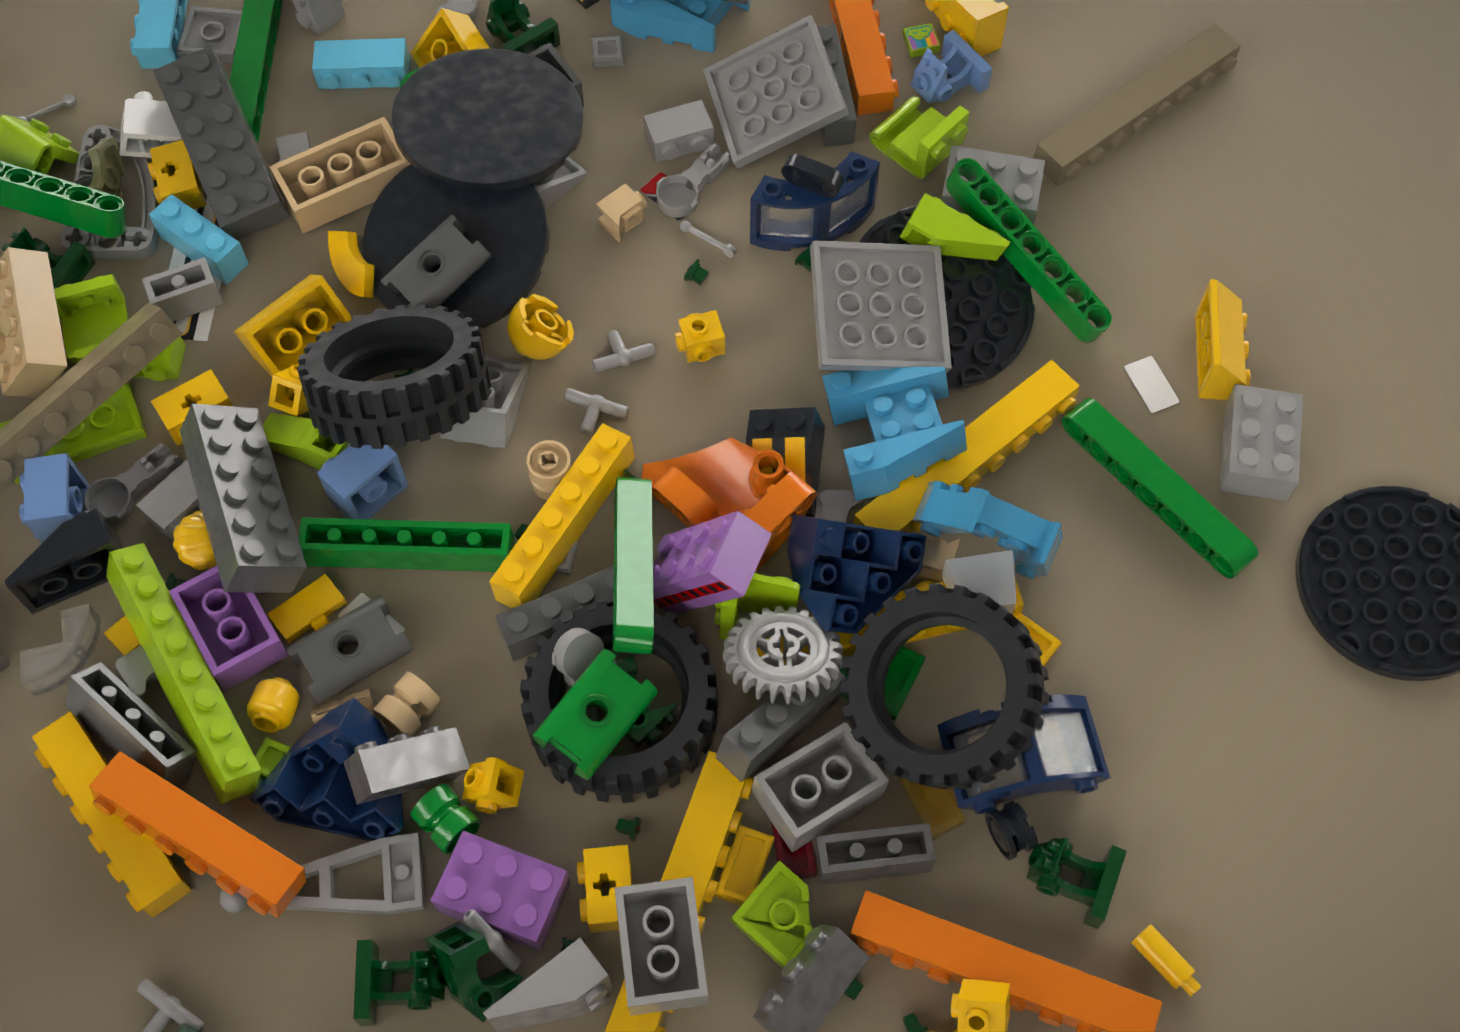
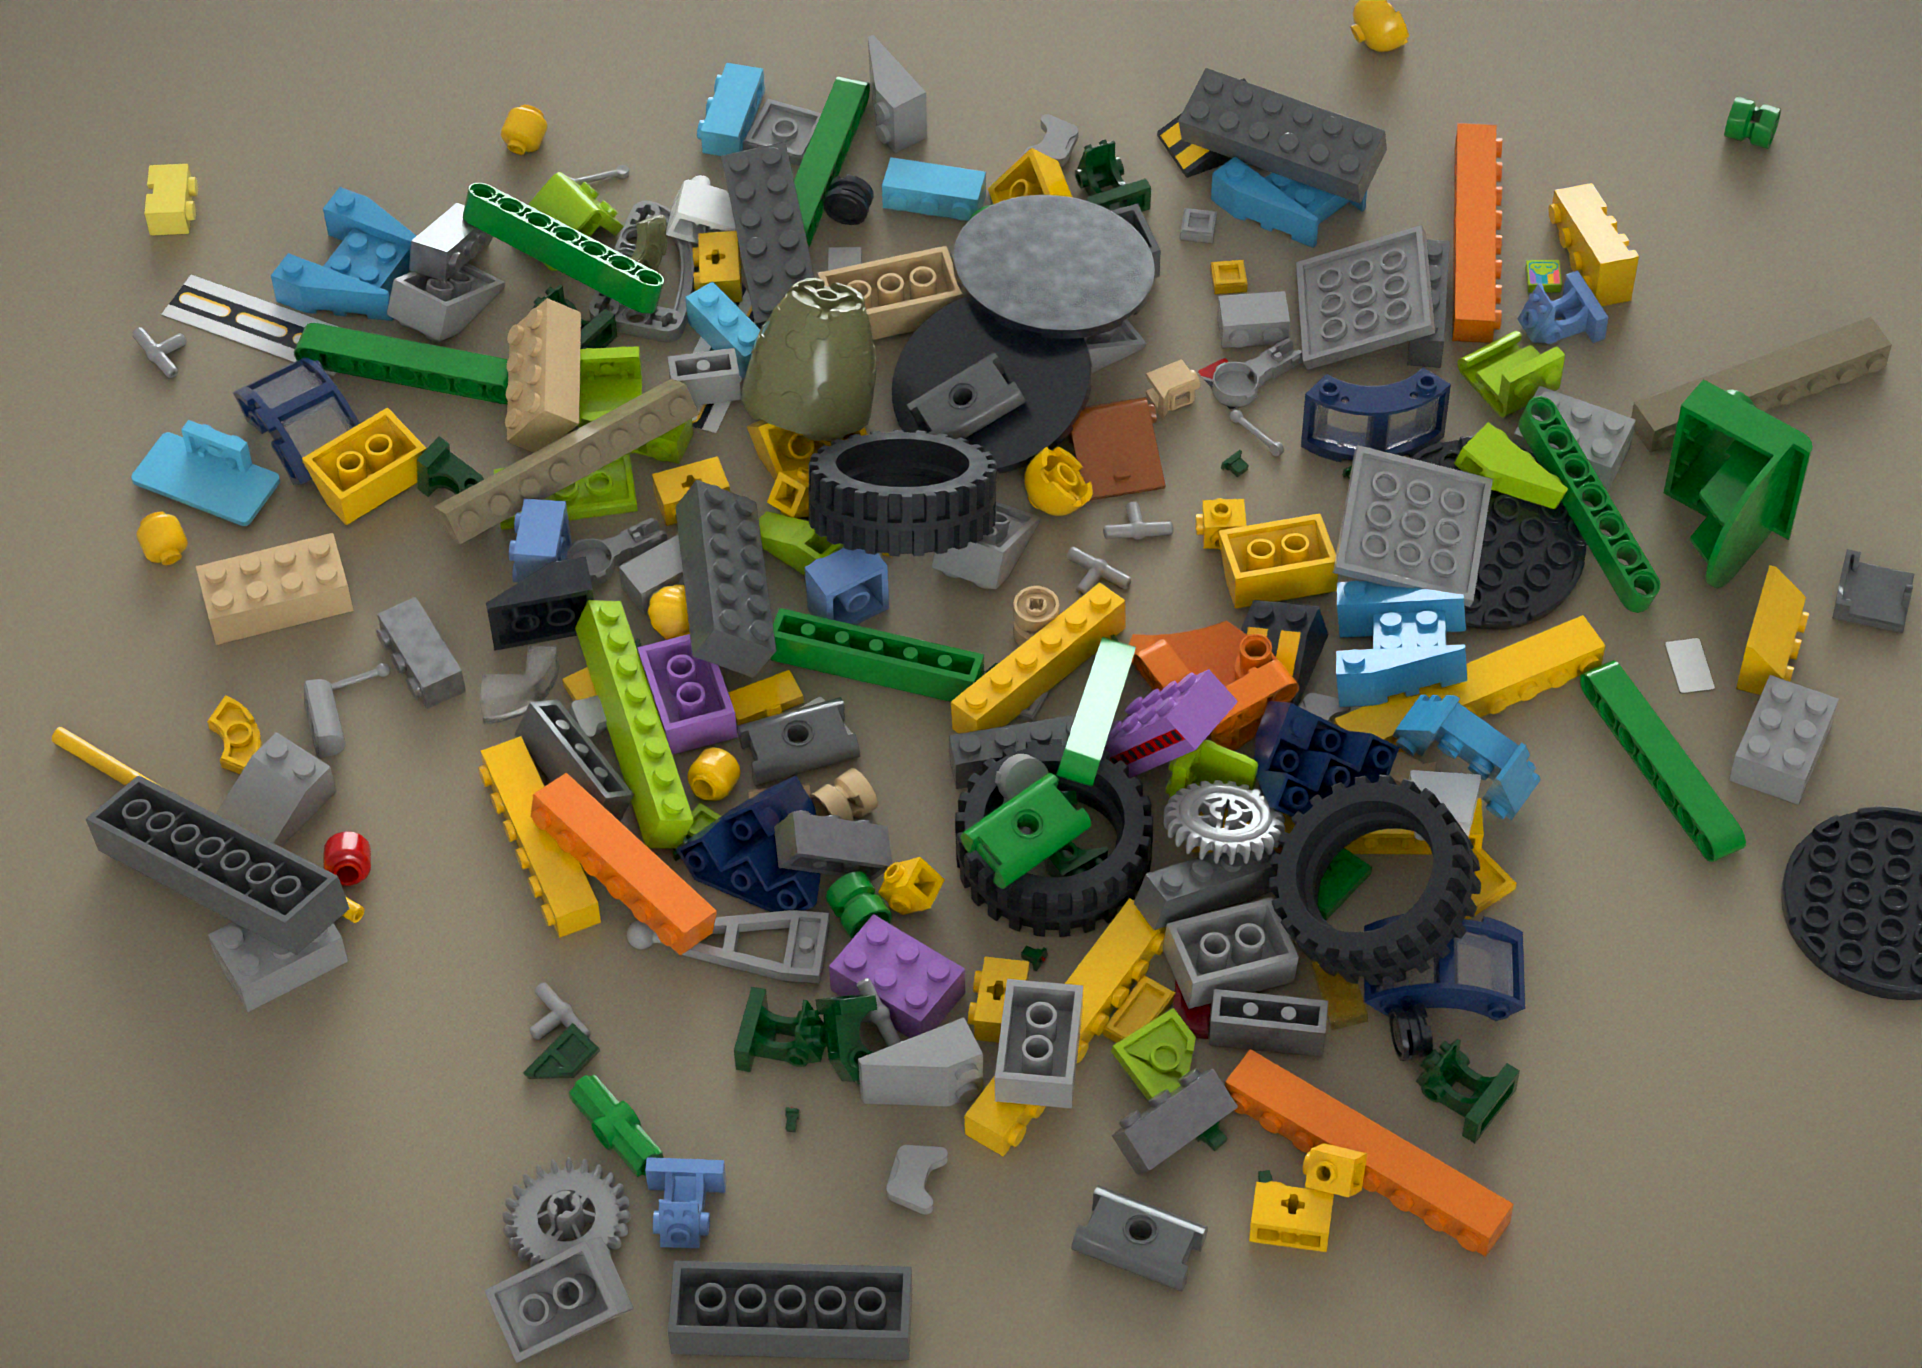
camera: 15 degrees right, 10 degrees down
(282, 260) = (814, 363): none -> olive piece
(284, 88) = (848, 200): none -> black wheel
(349, 264) = (886, 394): yellow tile -> none
(586, 280) = (1118, 448): none -> dark orange door
(646, 94) = (1228, 277): none -> yellow tile
(761, 363) = (1278, 560): none -> yellow slope
(812, 175) = (1374, 382): black beam -> none
(1154, 193) = (1738, 473): none -> green plate
(1166, 960) = (1532, 1179): yellow cylinder -> none
(1292, 282) = (1873, 594): none -> dark grey piece

